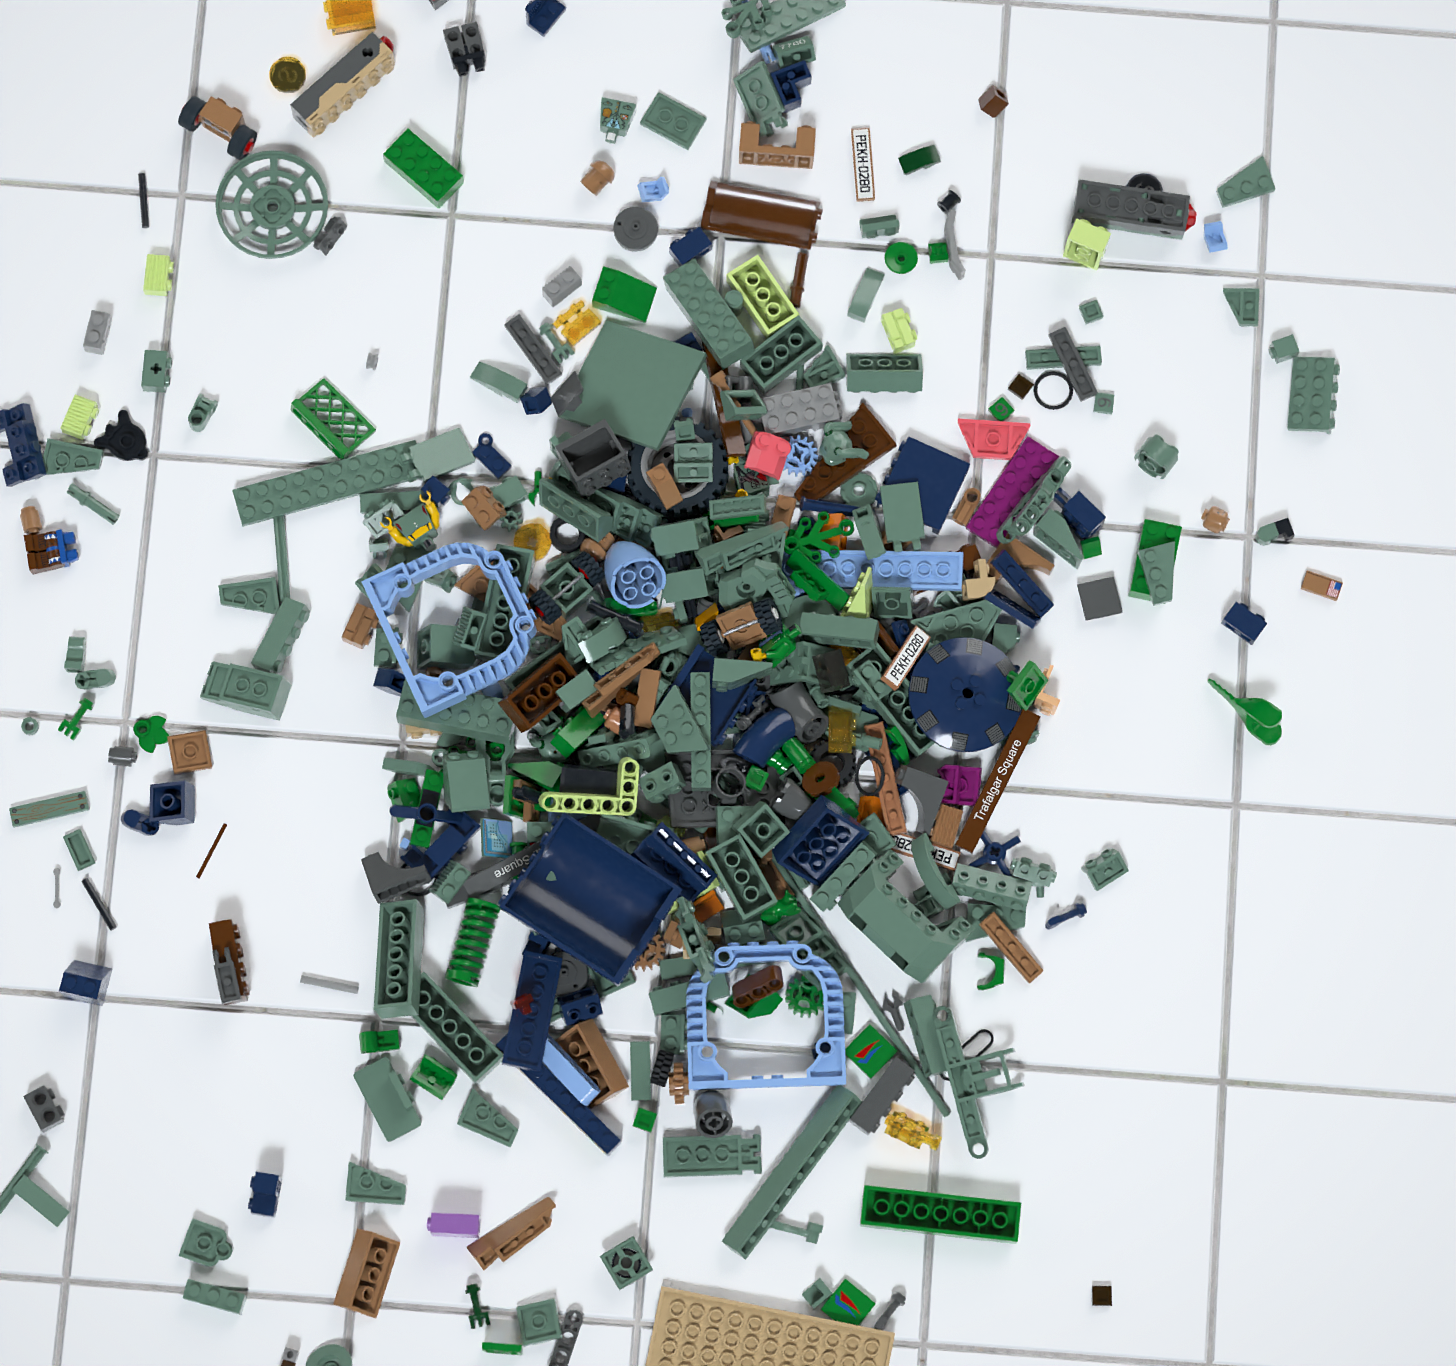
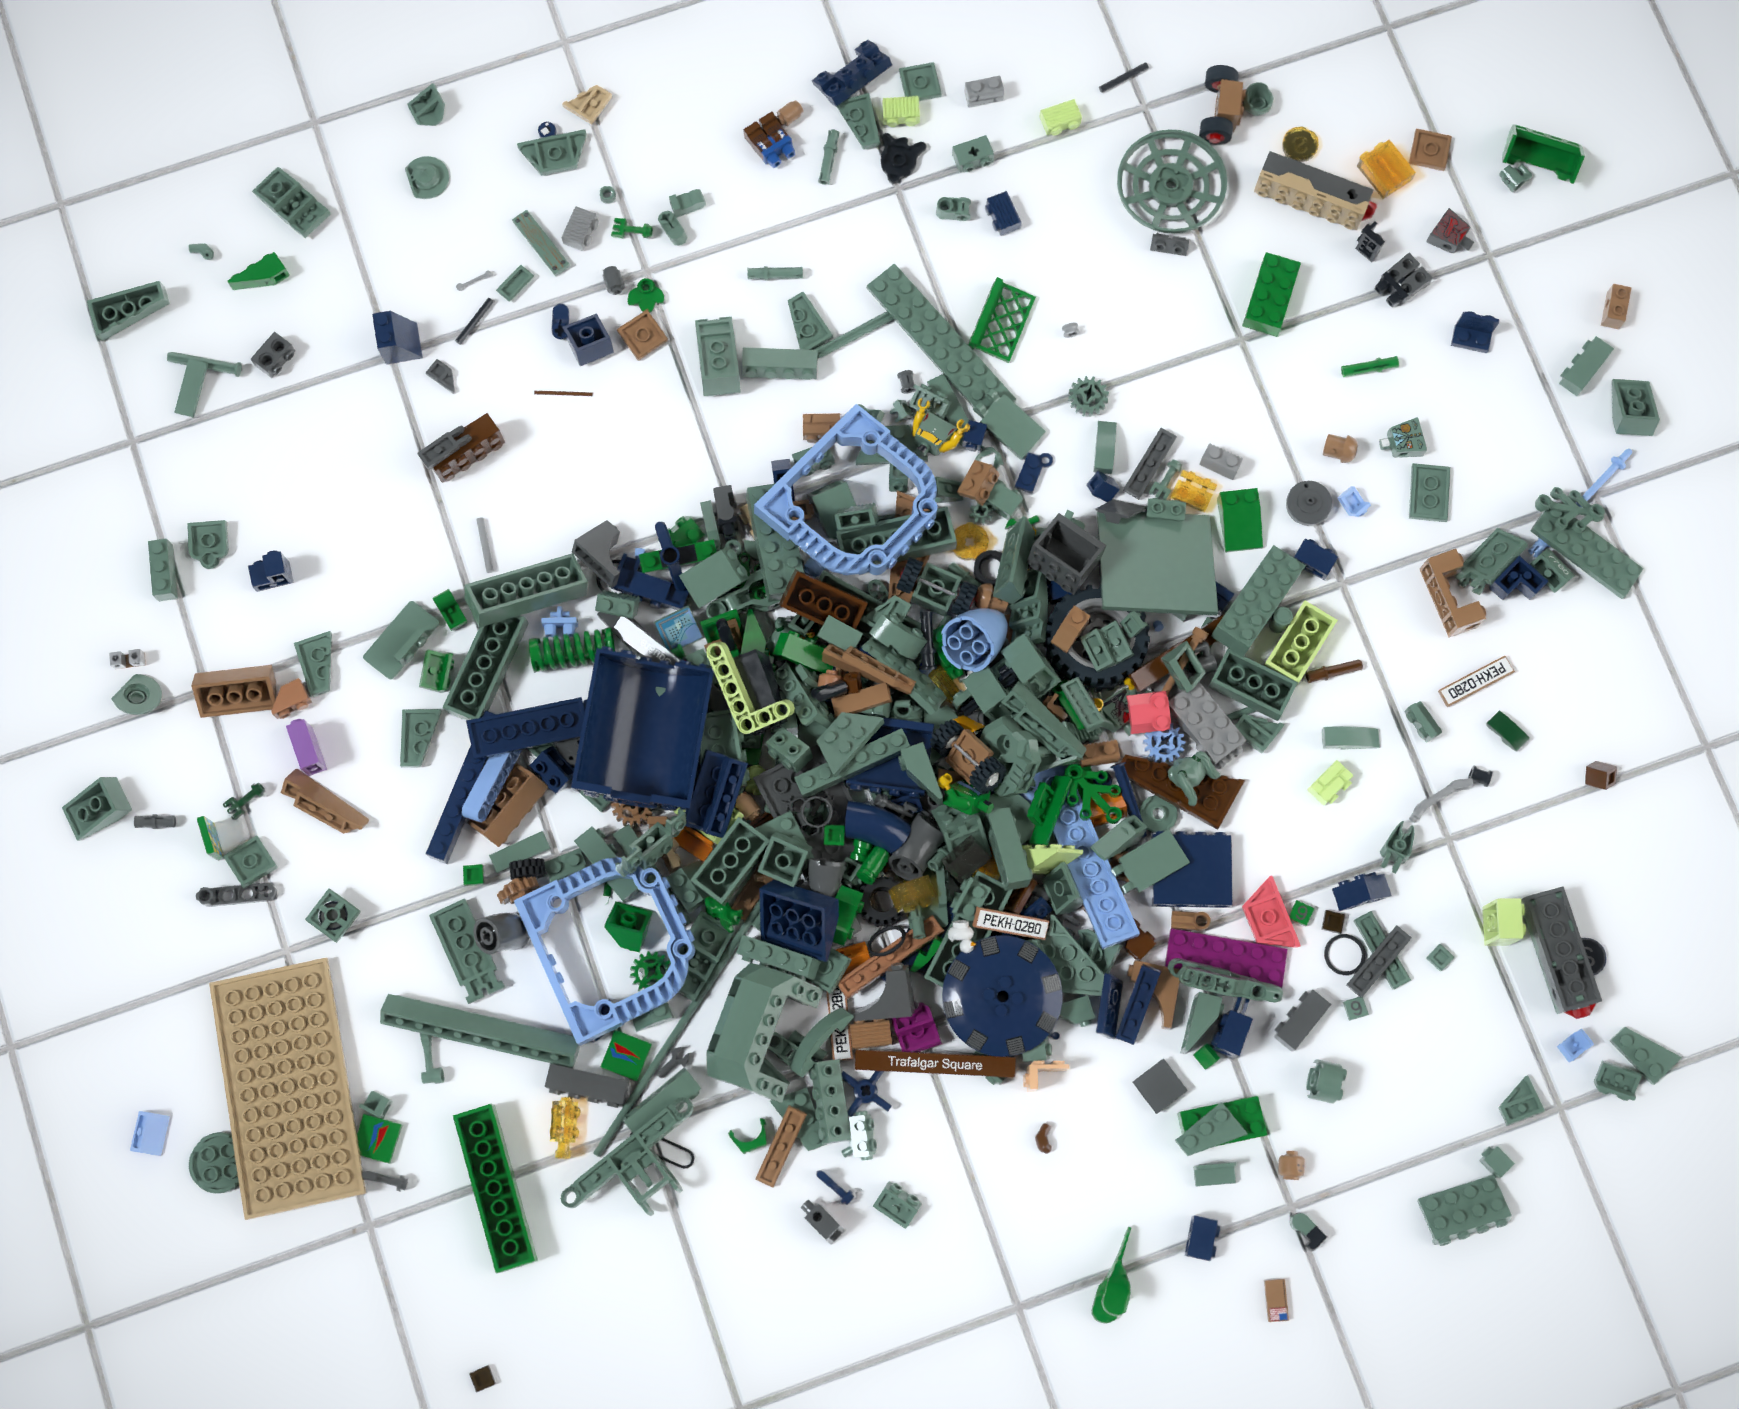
camera: 70 degrees right, 0 degrees up
(53, 765) = (579, 228): none -> light grey brick
(56, 387) = (920, 81): none -> sand green tile
(140, 956) = (442, 375): none -> dark grey tile
(183, 610) = (774, 273): none -> sand green pin
(228, 89) = (1258, 99): none -> sand green hair
(228, 370) = (1003, 213): none -> dark blue brick
(352, 530) = (907, 381): none -> dark grey bush
(397, 1223) = (290, 698): none -> nougat slope
(405, 748) = (726, 518): none -> dark grey hips
(417, 60) = (1370, 242): none -> black bracket
(444, 937) = (560, 619): none -> light blue hips
(448, 366) = (1097, 398): none -> sand green gear
(476, 536) = (947, 490): none -> sand green slope
(522, 1002) = (528, 714): clear red tile -> none
(534, 108) = (1370, 366): none -> green pin
(585, 356) = (1165, 509): none -> sand green bracket
(757, 986) = (637, 921): reddish brown beam -> none
(761, 215) = (1379, 609): reddish brown cylinder -> none
(814, 773) = (860, 886): reddish brown tile -> none
(884, 373) = (1283, 787): sand green slope -> none
(897, 701) = (963, 932): none -> white animal
(902, 250) = (1406, 747): green piece -> none
(938, 252) = (1425, 787): green tile -> none
(980, 300) = (1397, 847): none -> sand green hinge
(981, 585) = (1118, 966): tan brick -> none
(1006, 346) = (1363, 890): none -> dark blue brick
(1026, 684) = (1035, 1048): green tile -> none
(1094, 452) = (1301, 1019): none -> dark grey brick
(1101, 720) = (1041, 1139): none -> reddish brown arm
(1101, 938) = (827, 1226): none -> dark grey torso
(1194, 587) = (1214, 1174): none -> sand green panel
(1259, 217) = (1617, 1081): none -> sand green bracket

